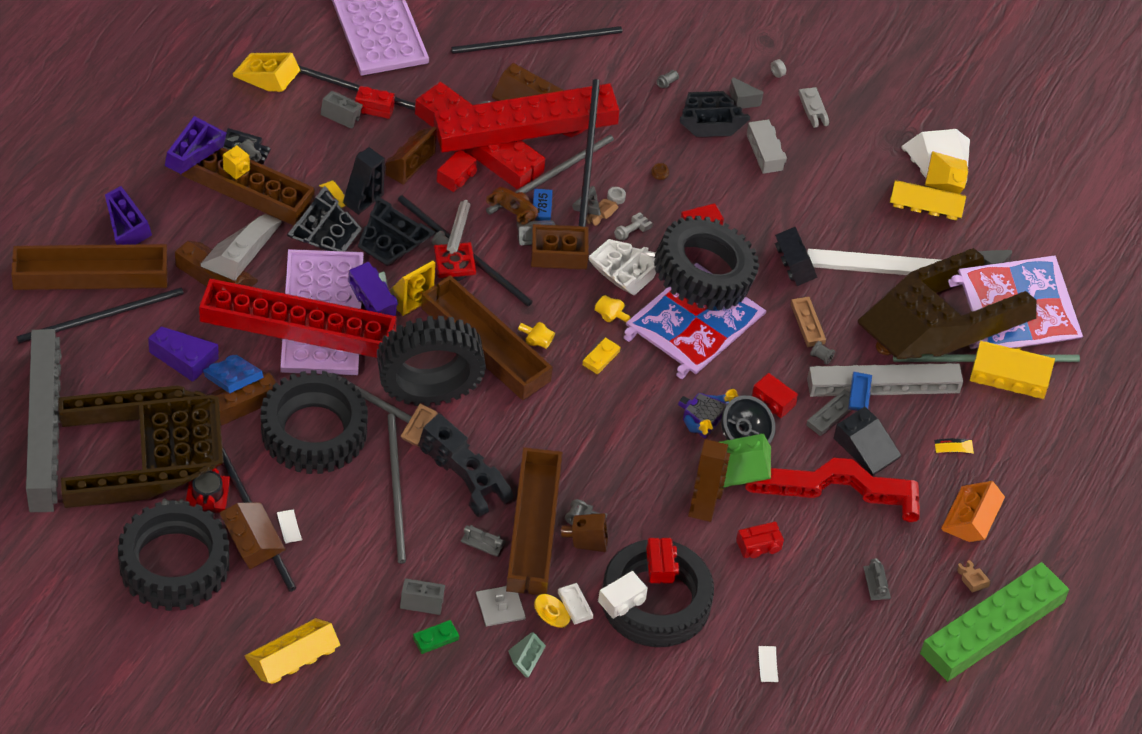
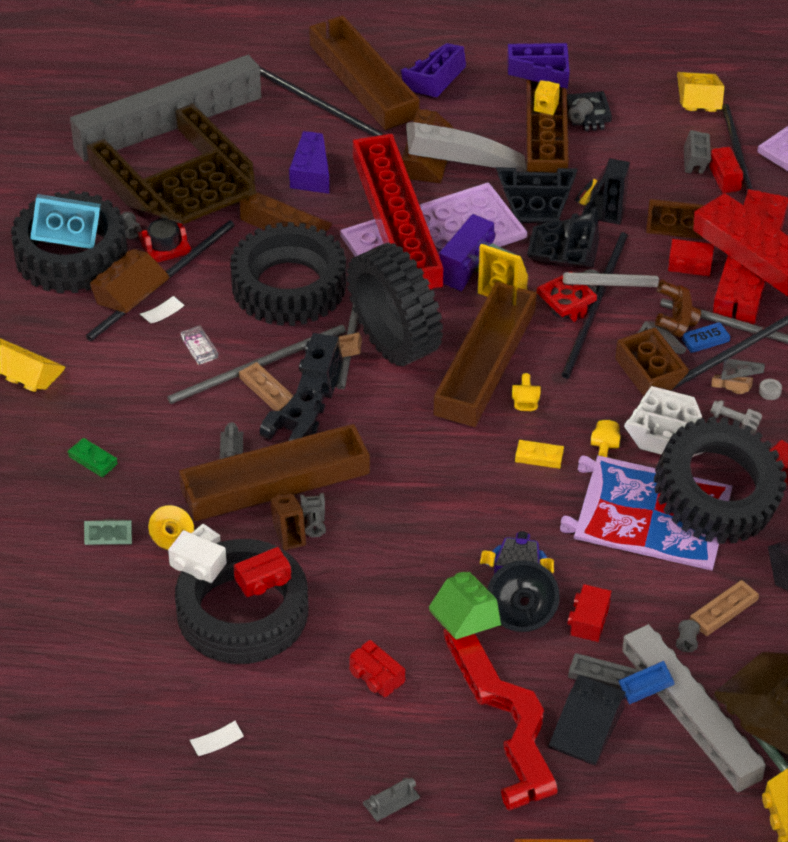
camera: 70 degrees right, 5 degrees down
(165, 542) = (65, 221): none -> medium azure slope
(233, 373) = (305, 199): blue plate -> none
(349, 517) = (199, 345): none -> clear tile
(422, 596) = (130, 425): dark grey hinge -> none
(432, 490) = (265, 386): none -> medium nougat plate
(500, 606) = (160, 491): light grey piece -> none
(709, 480) = (408, 581): reddish brown wedge -> none
(953, 445) = (651, 813): yellow sticker -> none

